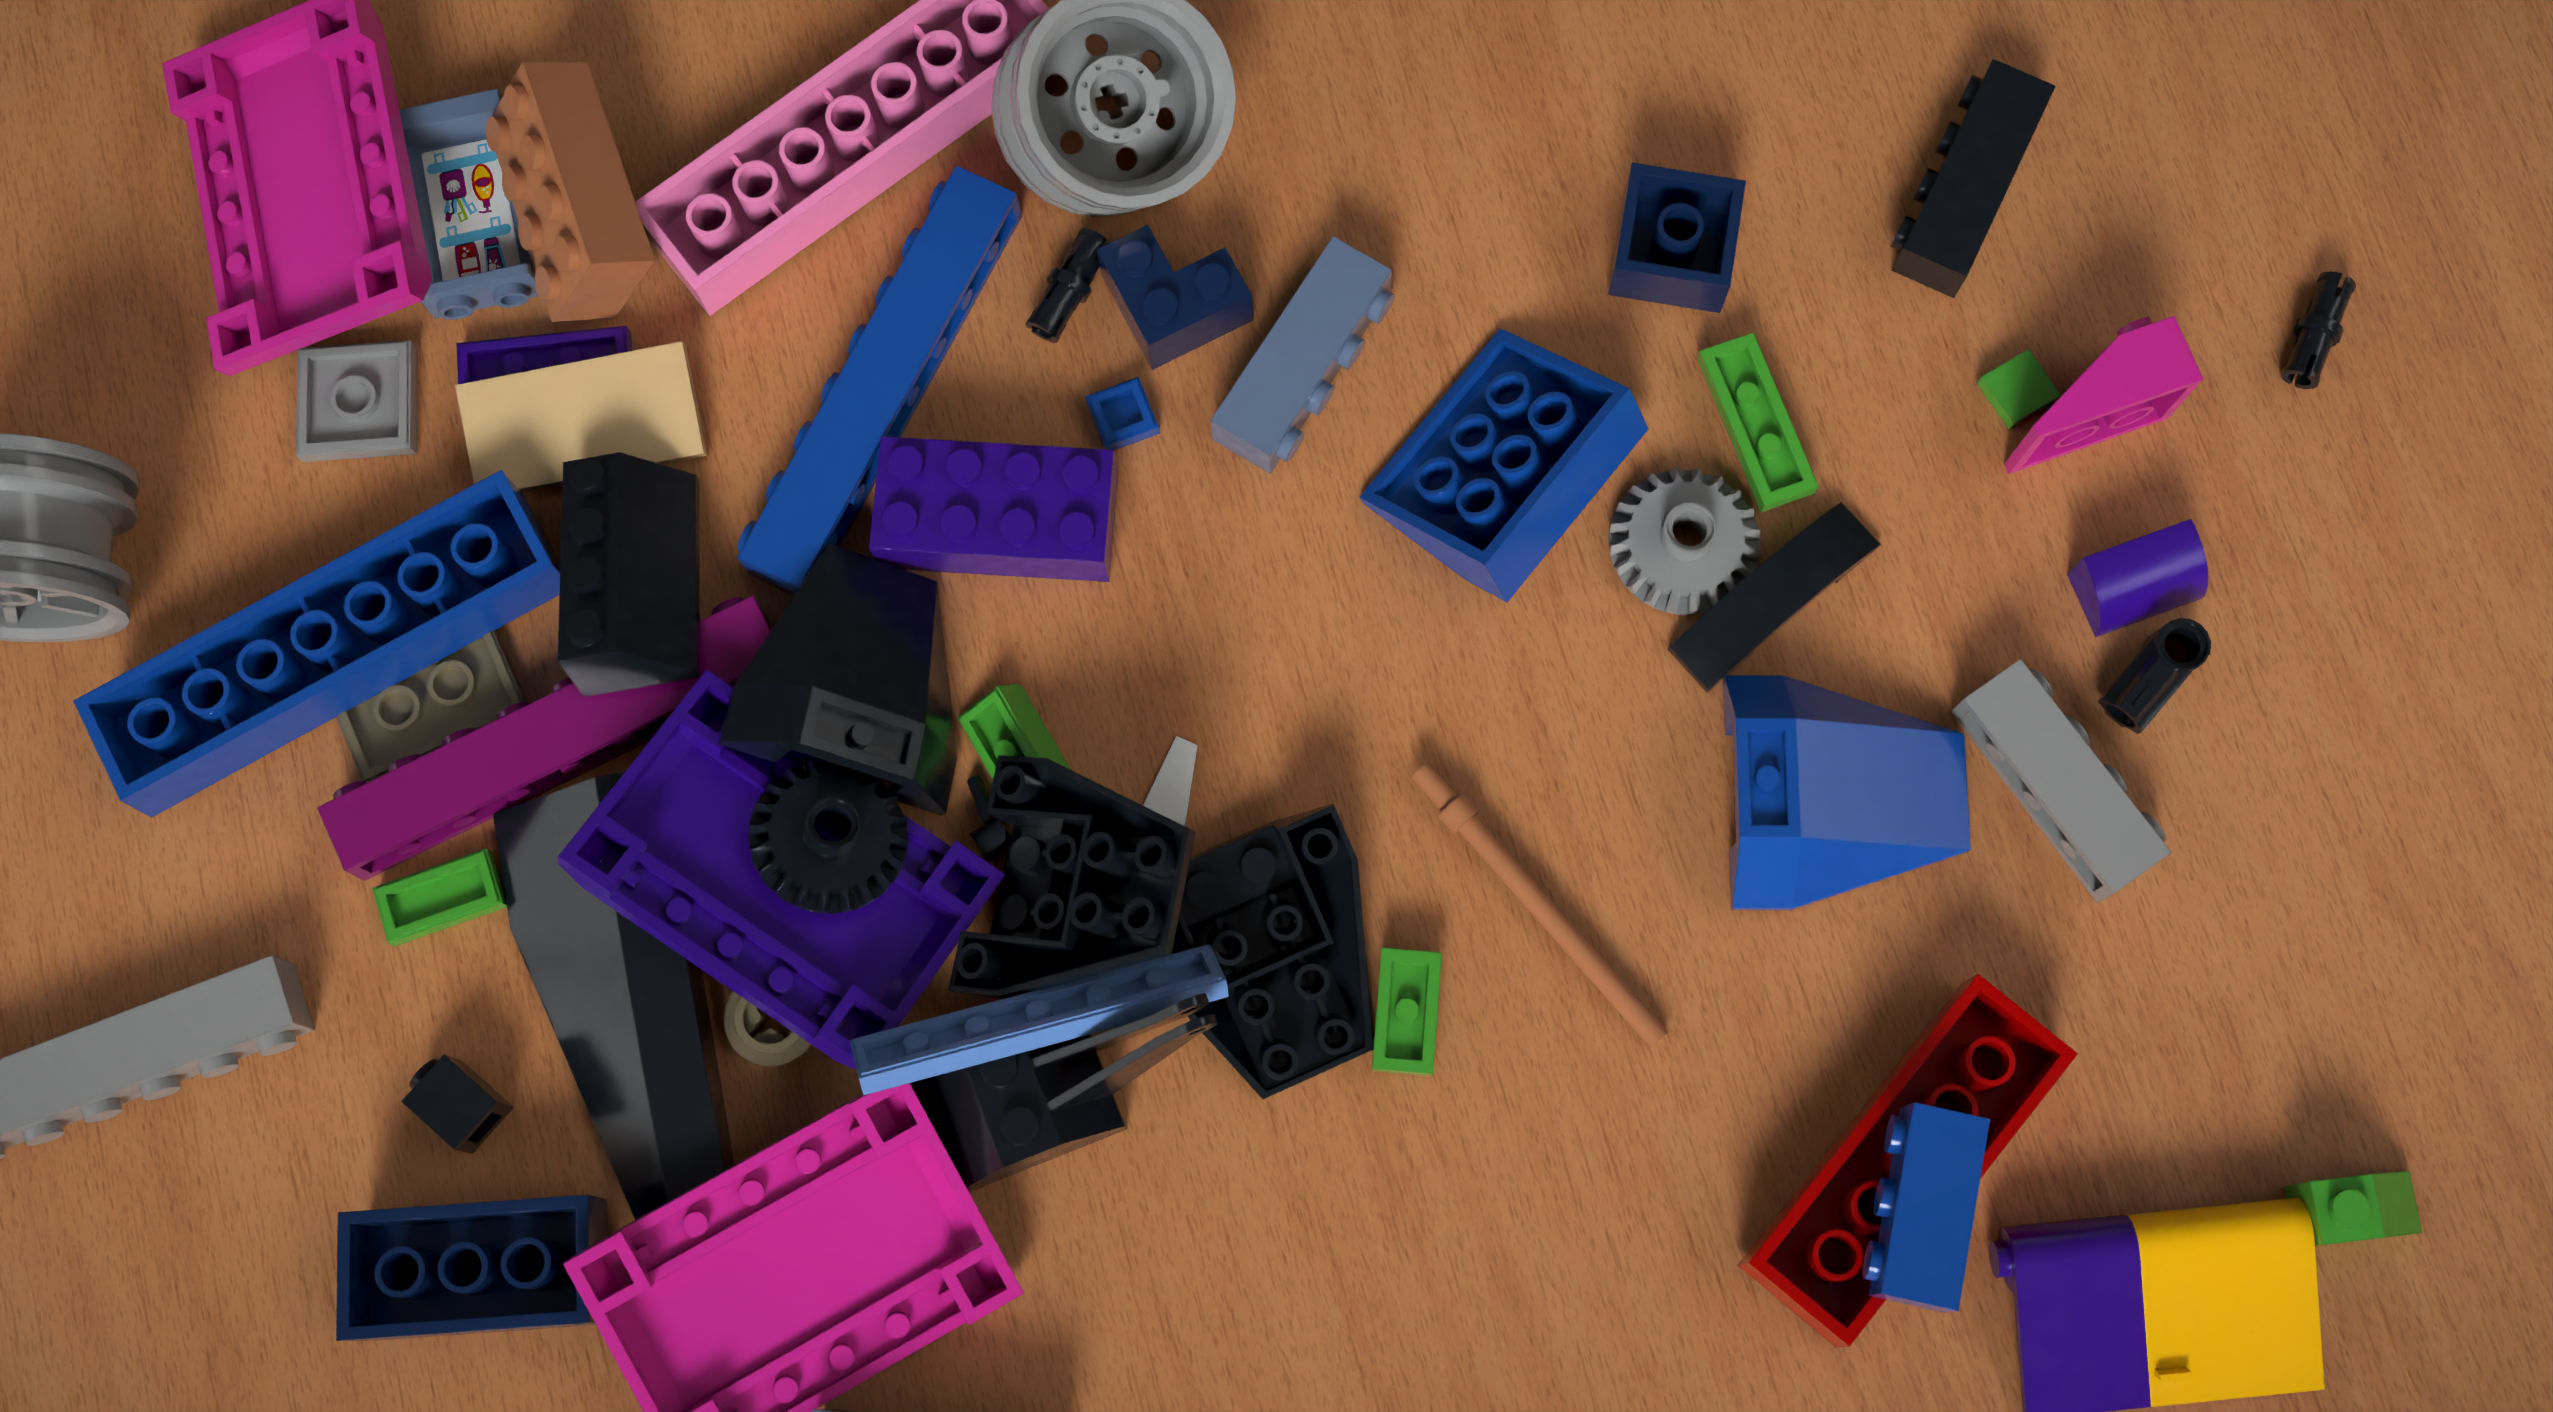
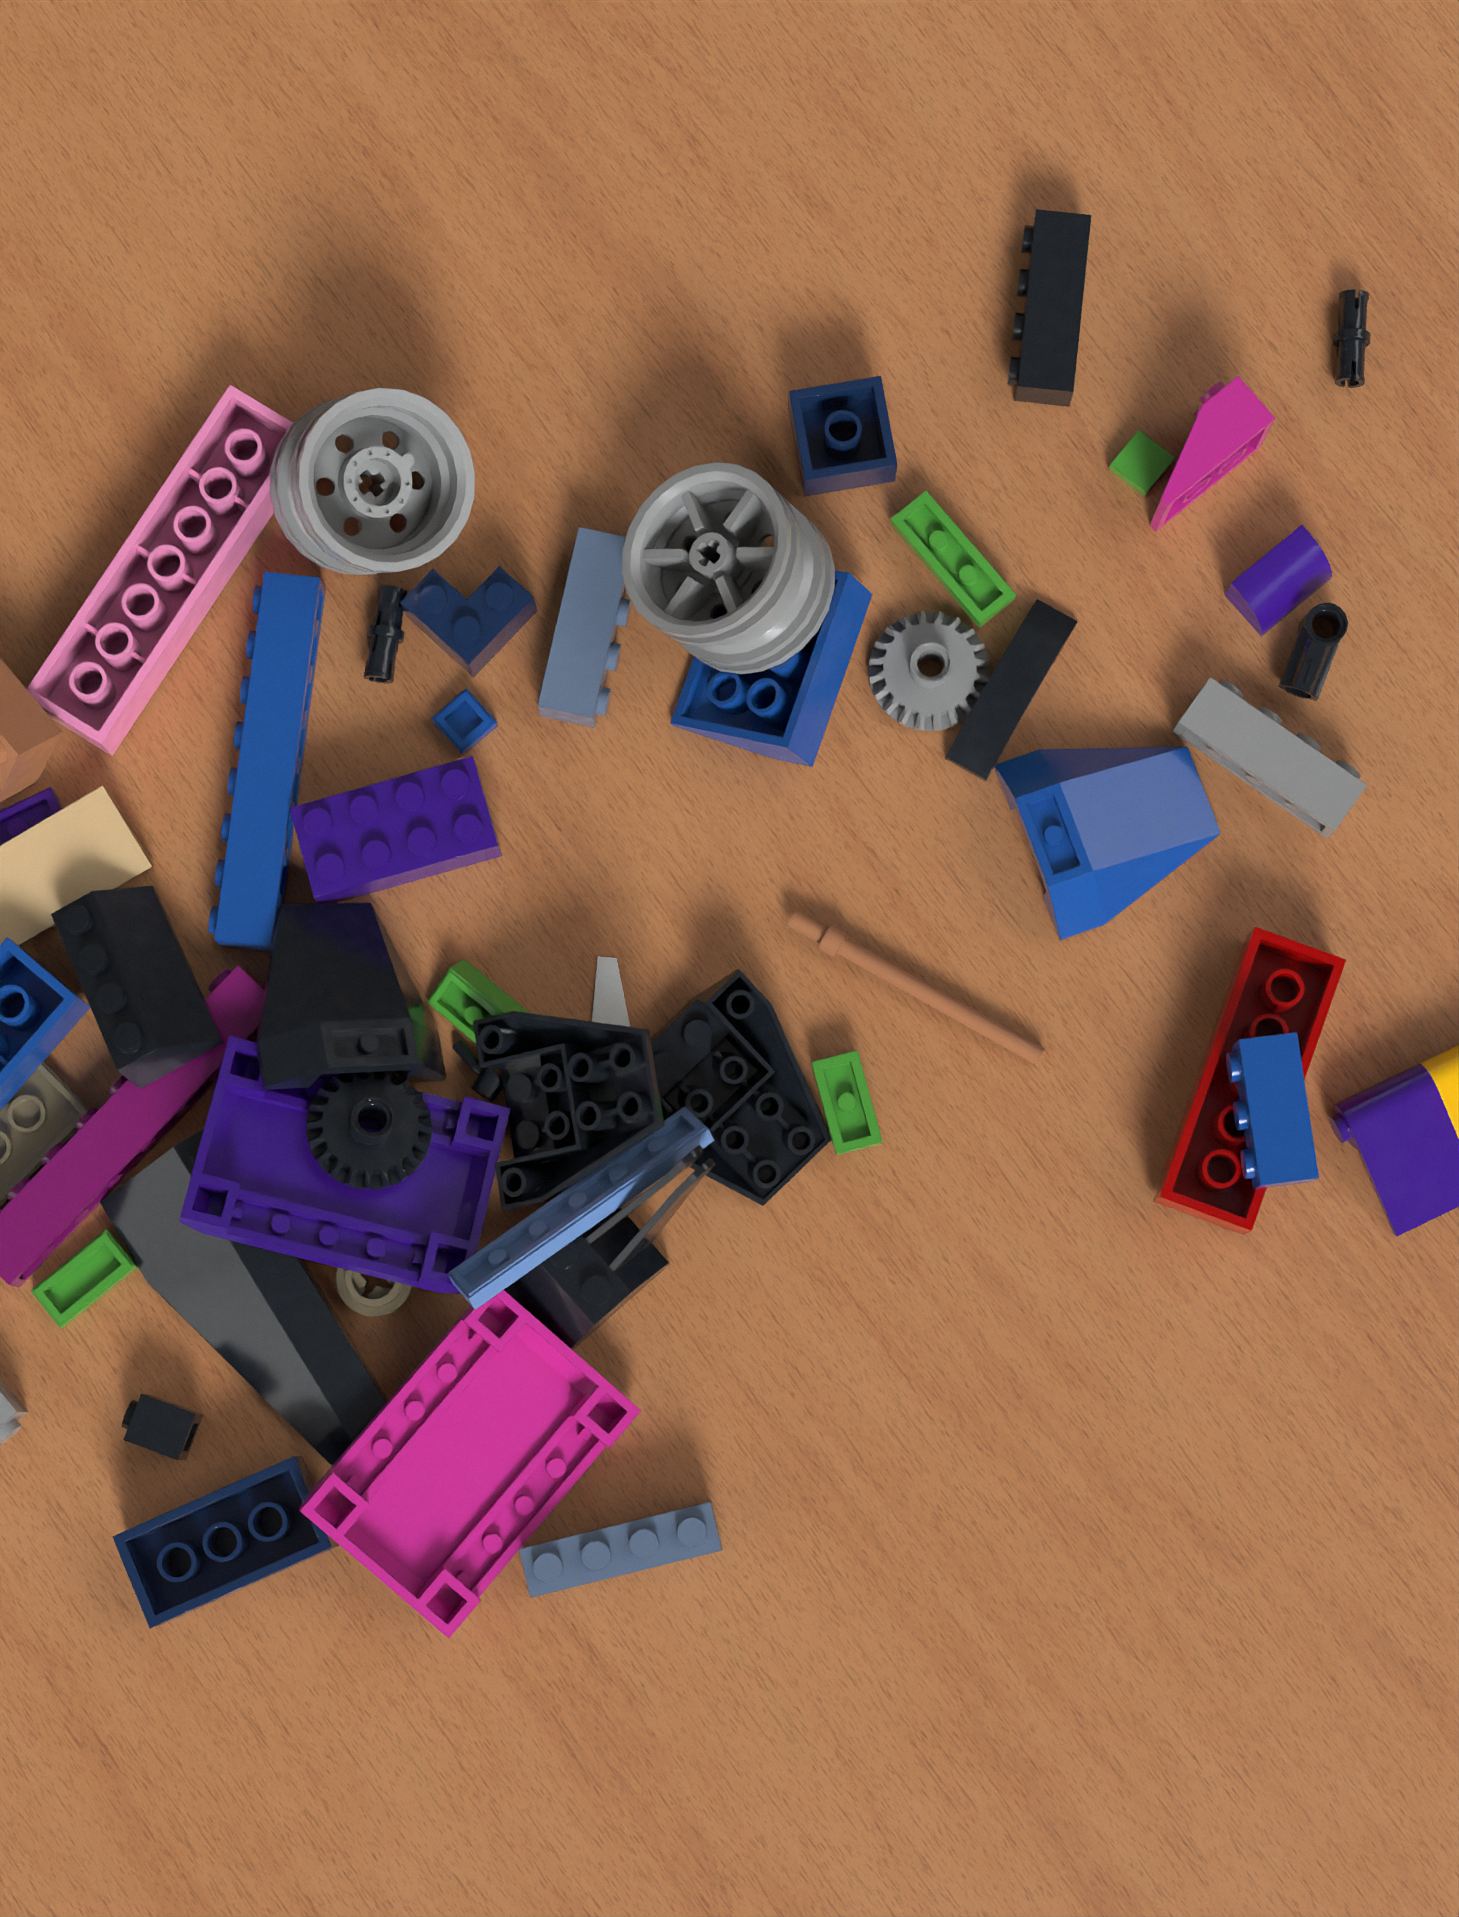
camera: 20 degrees left, 5 degrees up
(1470, 302) = (705, 548): none -> light grey wheel

